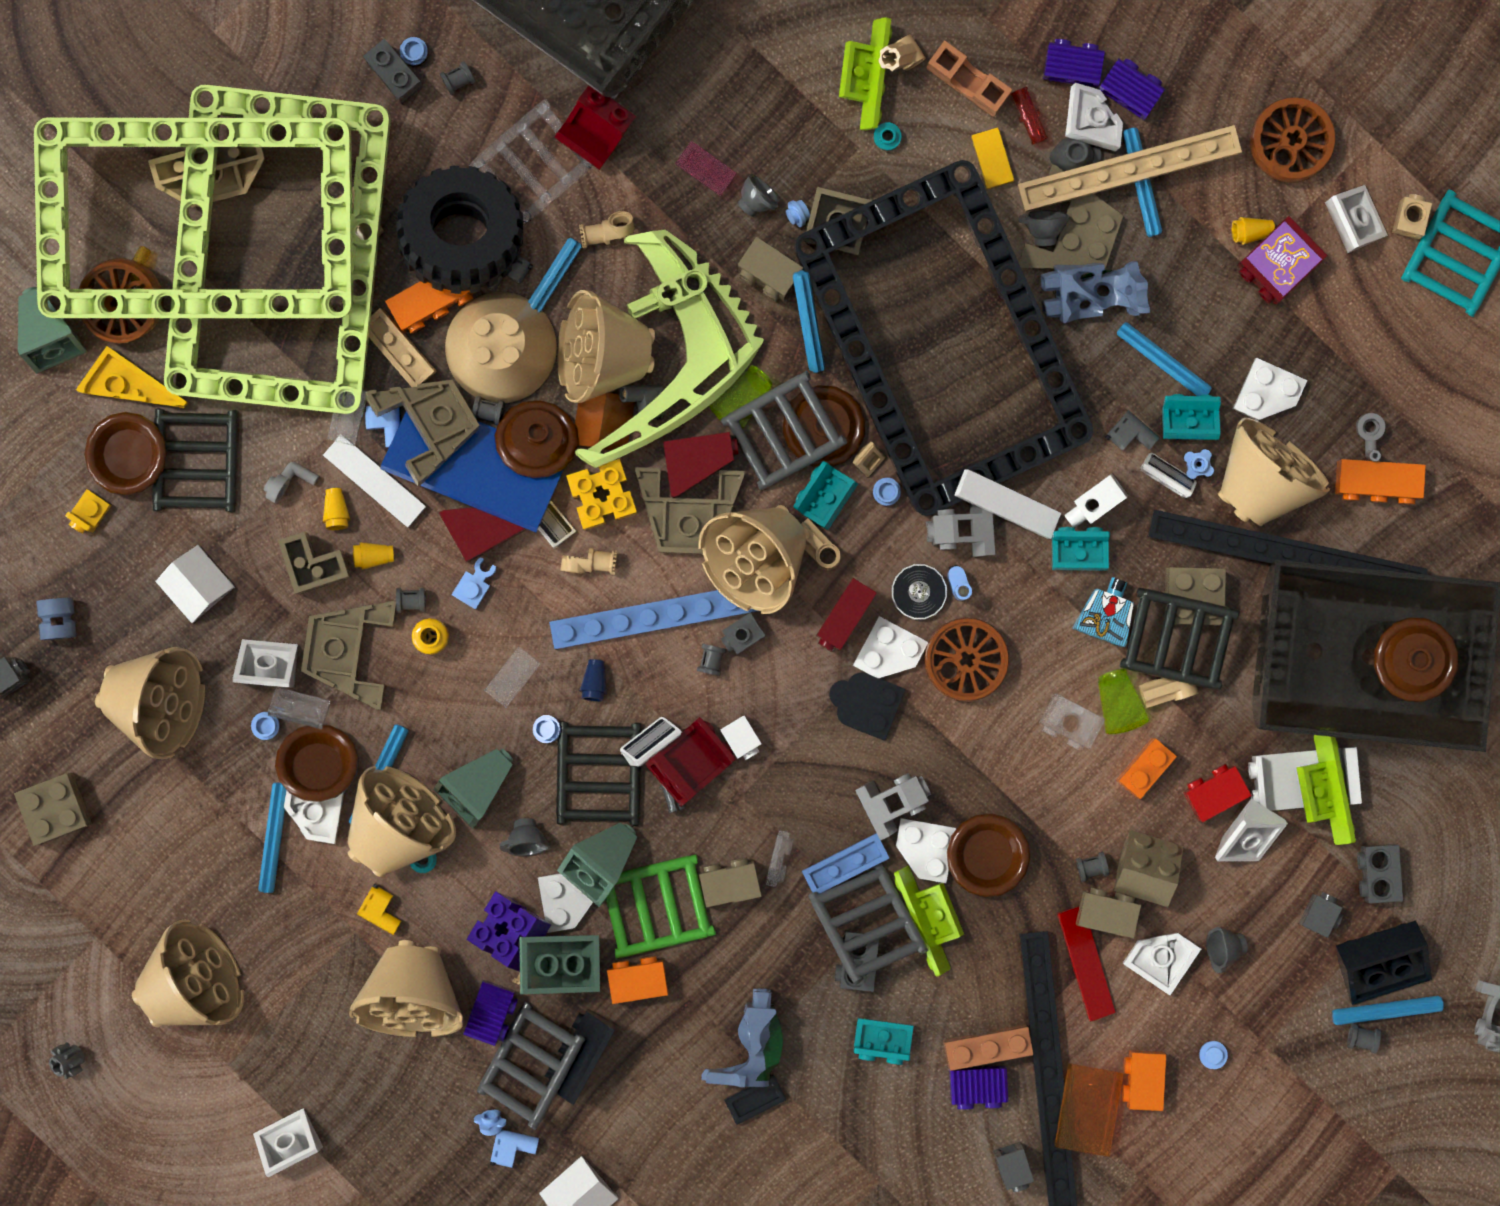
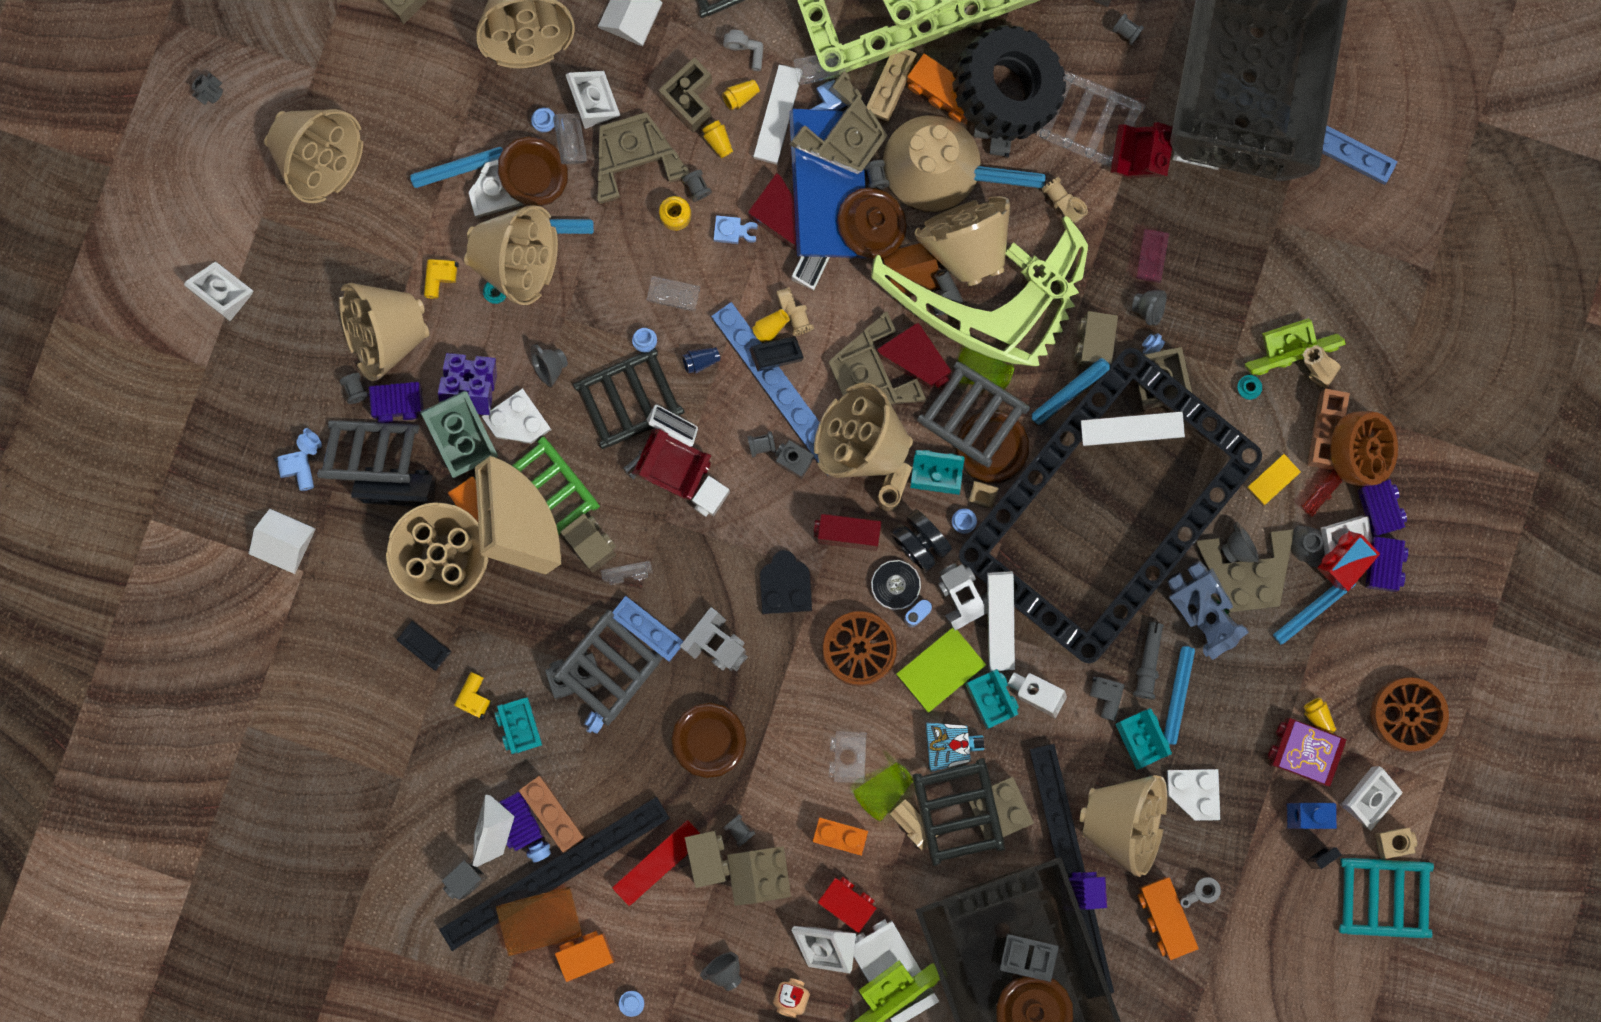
camera: 70 degrees right, 5 degrees down
(456, 1050) = (354, 388): none -> dark grey bush
(474, 785) = (573, 303): sand green slope -> none
(593, 510) = (852, 310): yellow brick -> none
(594, 594) = (770, 326): none -> yellow cone
(599, 861) = (558, 427): sand green slope -> none
(625, 601) = (776, 353): none -> black tile
(674, 948) = (514, 519): none -> tan brick
(674, 1043) = (436, 553): none -> tan cone
(762, 1038) = (476, 626): sand blue hips -> none
(831, 1078) = (469, 700): none -> yellow piece
(880, 278) = (1132, 428): none -> white tile
(888, 544) = (921, 540): none -> black wheel
(889, 650) = (837, 583): white plate -> none
(915, 963) = (593, 722): none -> light blue plate
(925, 848) = (690, 687): white plate -> none
(932, 915) = (637, 719): lime bracket -> none
(978, 1117) = (491, 831): none -> white slope
(1007, 62) = (1364, 448): none -> dark orange piece
(1018, 1078) = (538, 851): none -> light blue plate
(1025, 587) = (941, 669): none -> lime tile
(1112, 125) = (1348, 560): none -> red brick
(1128, 381) = (1147, 673): none -> dark grey pin
(1129, 168) = (1320, 592): tan plate -> none
(1162, 959) = (690, 924): white plate -> none
(1168, 475) = (1087, 743): slope -> none
(1205, 468) = (1109, 755): light blue plate -> none
(1283, 892) = (791, 998): none -> head
(1319, 546) = (1089, 890): none -> dark purple brick
(1347, 287) = (1311, 816): none -> blue torso
(1352, 651) = (1016, 953): none -> dark grey piece
(1394, 296) = (1323, 857): none -> black tile

